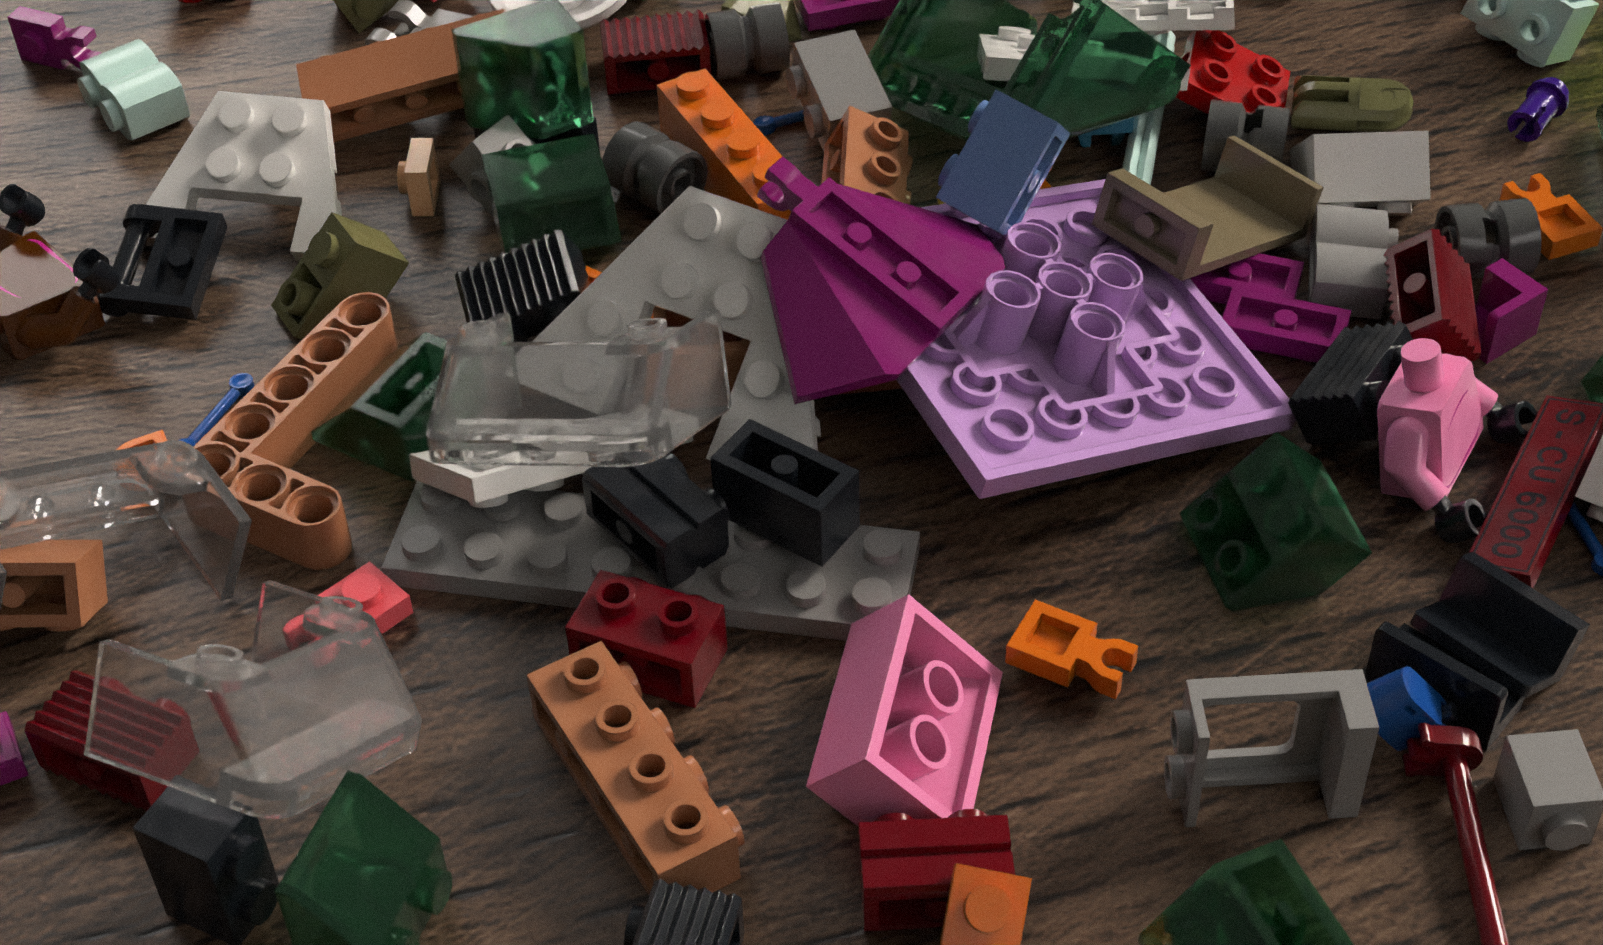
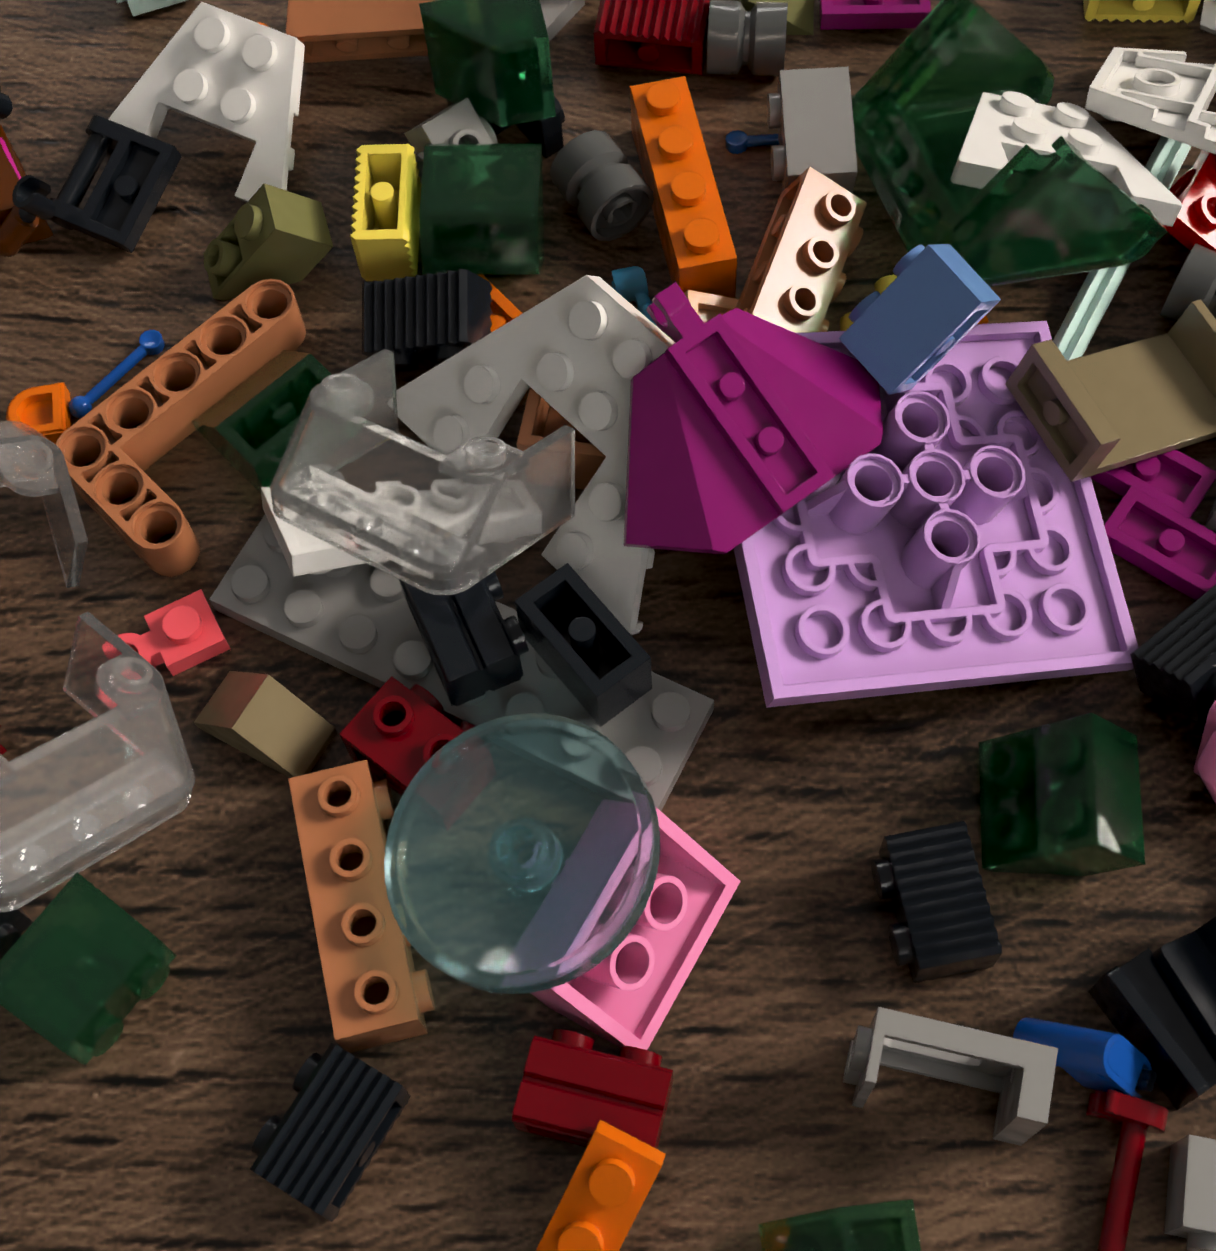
camera: 20 degrees right, 20 degrees up
(420, 177) = (380, 124): light nougat plate -> none
(452, 220) = (386, 211): none -> light yellow brick
(475, 653) = (266, 723): none -> dark tan slope
(793, 656) = (522, 853): none -> clear light blue dish
(1065, 645) = (802, 875): orange plate -> none
(1195, 626) = (937, 902): none -> black brick

